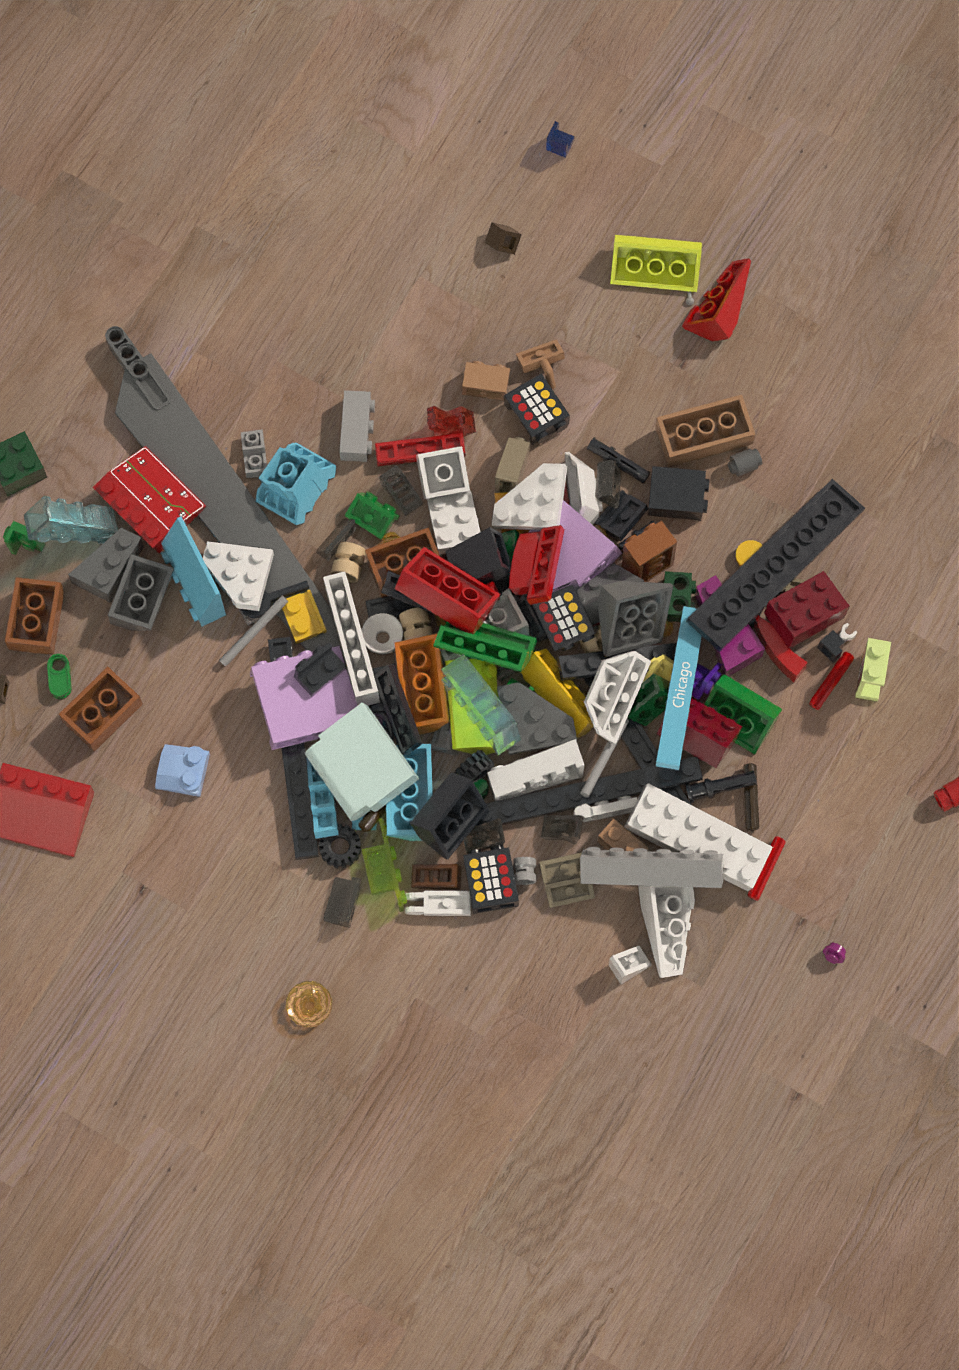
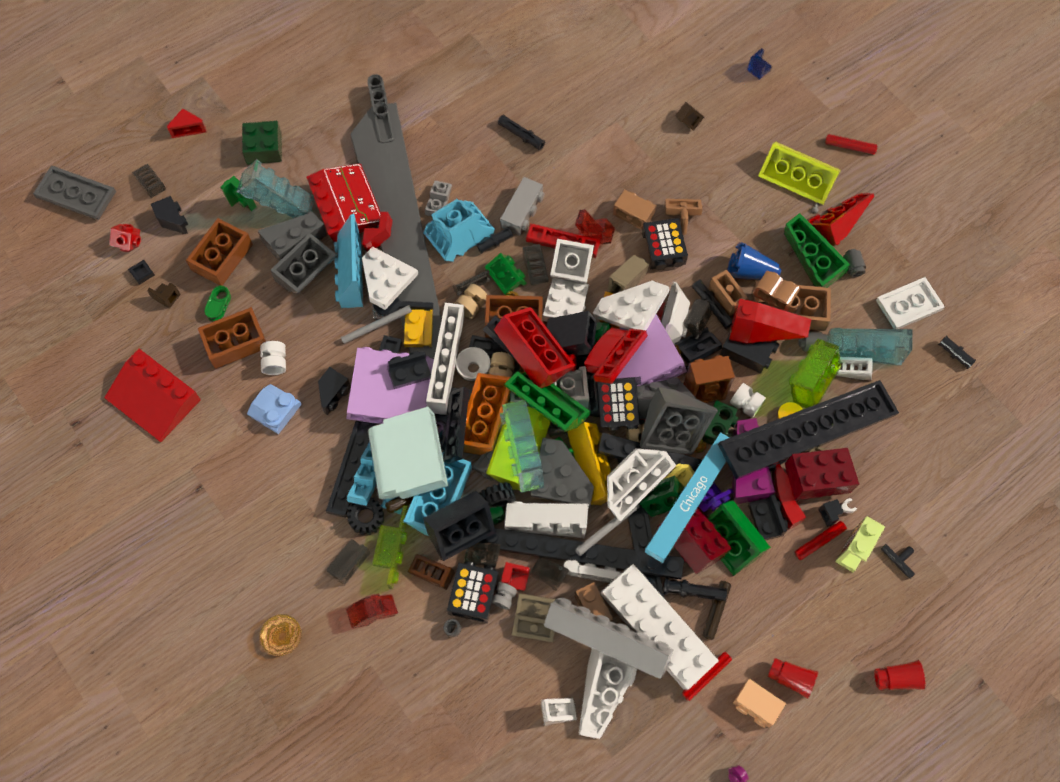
camera: 20 degrees right, 5 degrees down
(156, 714) = (273, 358): none -> white wheel
(206, 528) = (376, 236): none -> red slope
(237, 722) = (332, 388): none -> black slope
(323, 335) = (527, 135): none -> black pin
(341, 479) = (494, 240): none -> black pin
(392, 940) = (370, 609): none -> clear red brick
(440, 903) = (424, 595): white hinge -> none
(480, 924) = (449, 627): none -> dark grey hinge
(528, 845) = (515, 576): none -> red panel
(630, 442) = (726, 291): none -> medium nougat brick
(644, 398) = (750, 263): none -> blue cone
(684, 422) = (776, 290): none -> medium nougat brick
(684, 465) = (764, 323): none -> red wedge
(698, 557) = (747, 400): none -> white wheel
(701, 203) = (851, 144): none -> red axle
(711, 358) = (817, 256): none -> green wedge
(757, 350) = (856, 261): none -> dark grey brick
(760, 500) = (815, 373): none -> clear neon green brick
(768, 678) = (768, 517): none -> black bracket
(799, 482) = (856, 374): none -> white slope
(807, 443) = (881, 345): none -> clear light blue wedge
(829, 874) = (759, 704): none -> light nougat brick
(834, 375) = (910, 303): none -> white plate
(854, 833) = (793, 677): none -> red plant
(904, 413) = (957, 352): none -> black pin
(920, 668) = (899, 559): none -> black piece

